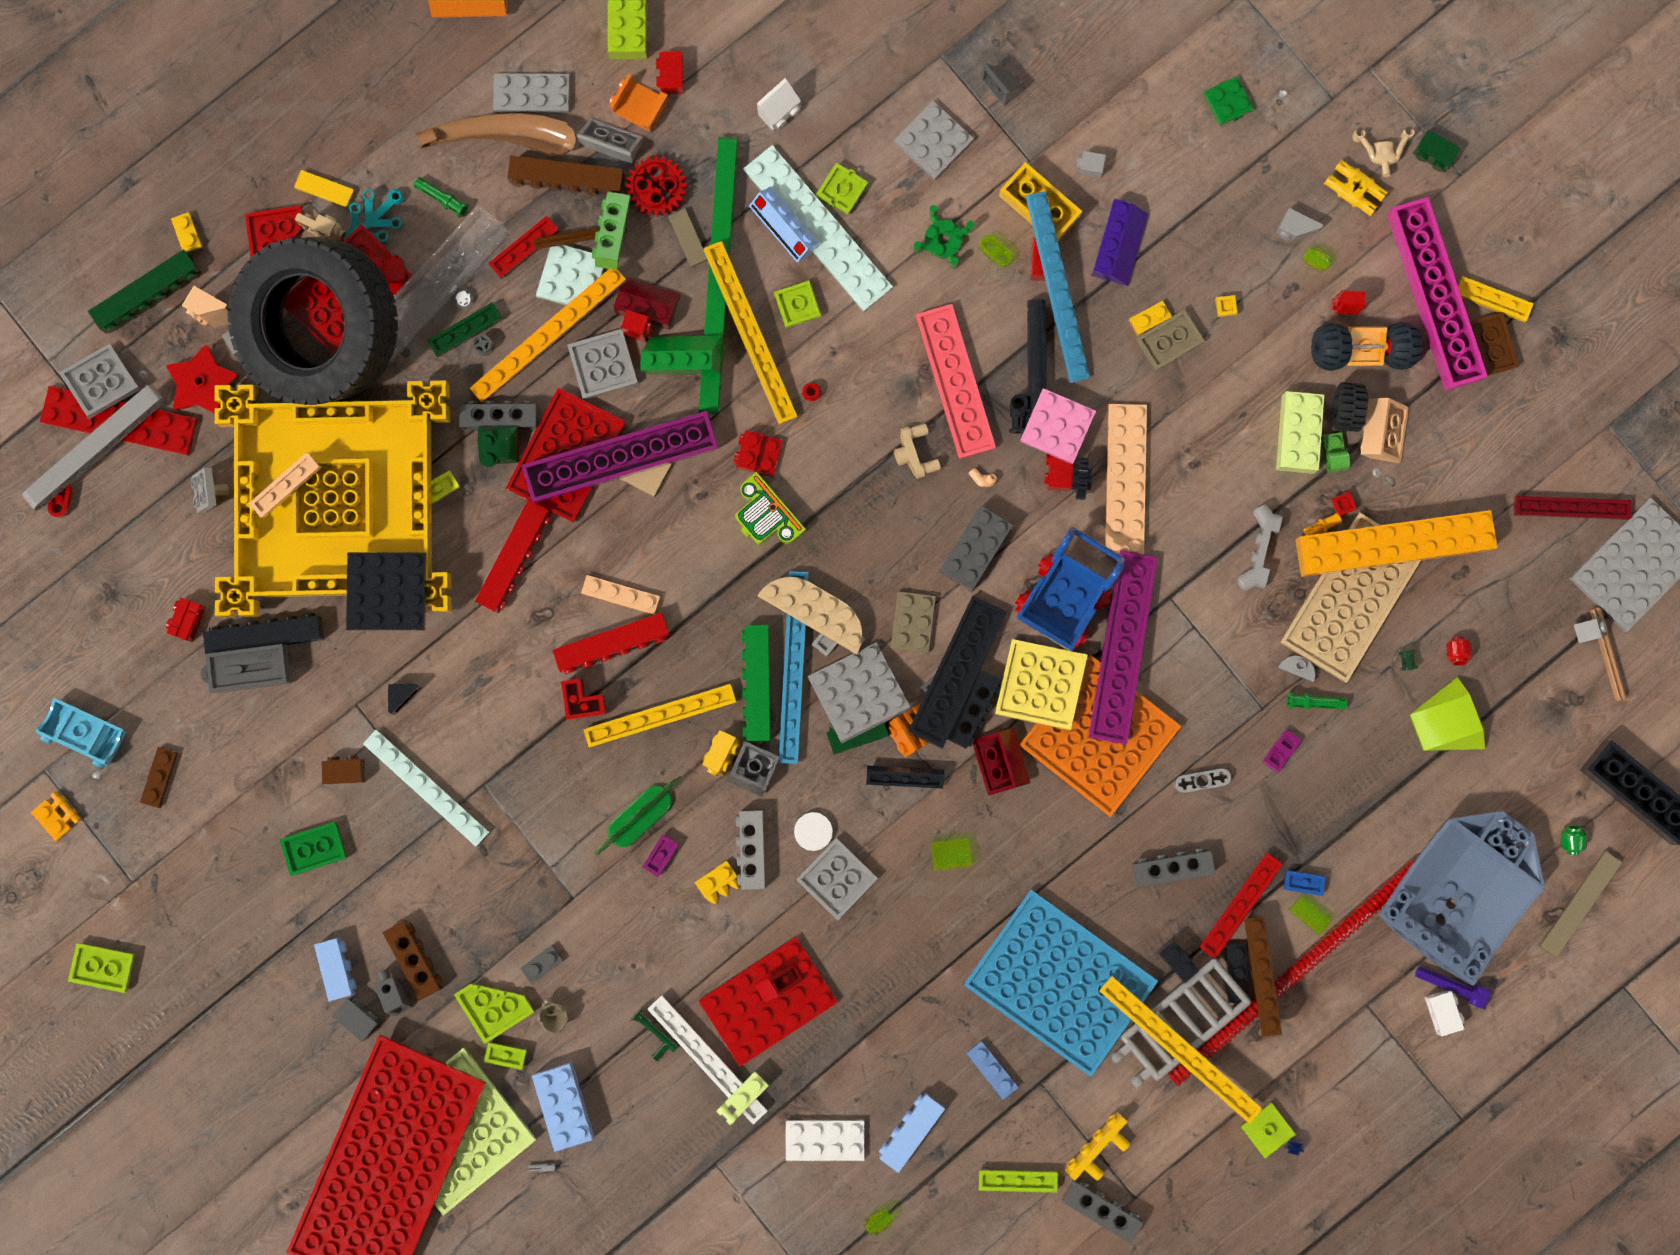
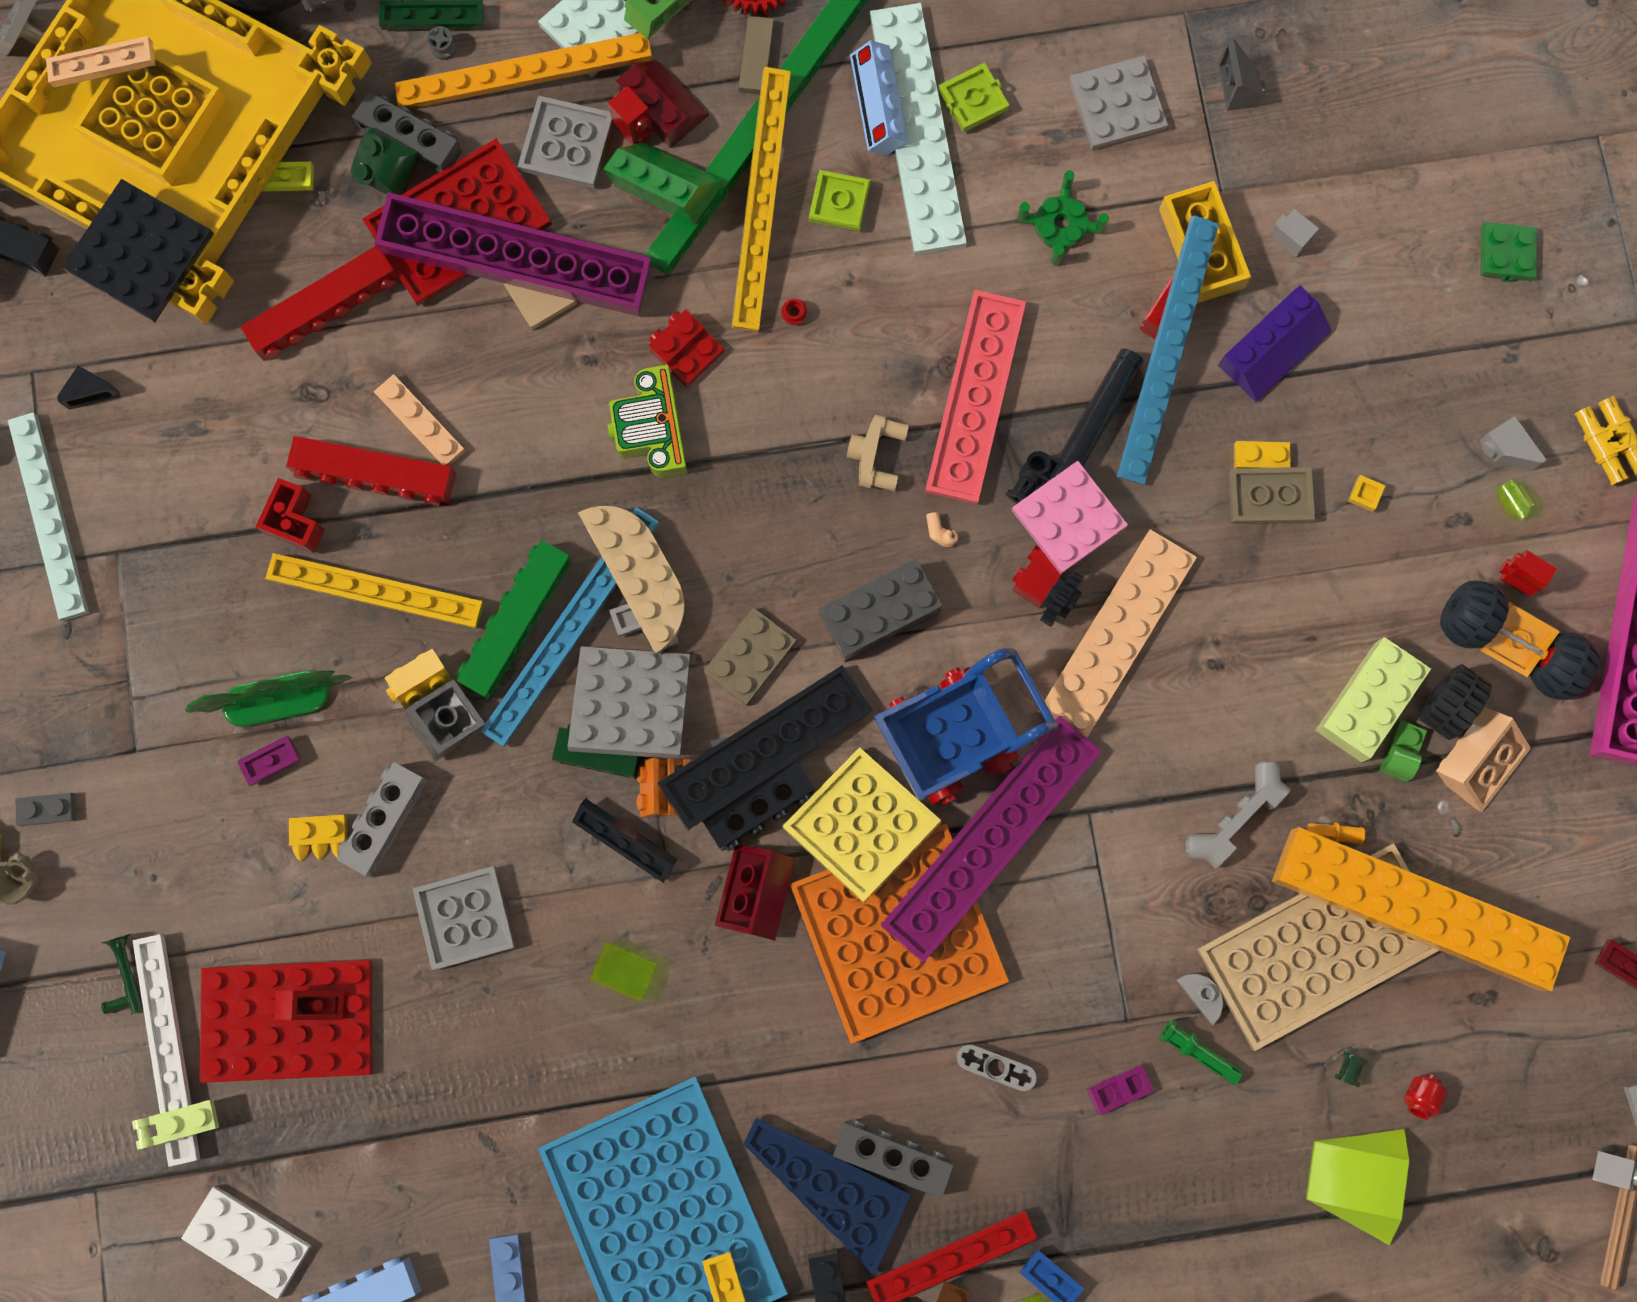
camera: 30 degrees right, 5 degrees down
(813, 831) = (472, 841): white tile -> none
(997, 250) = (1118, 271): clear neon green plate -> none
(1159, 907) = (841, 1196): none -> dark blue wing
(1343, 504) = (1378, 821): red plate -> none

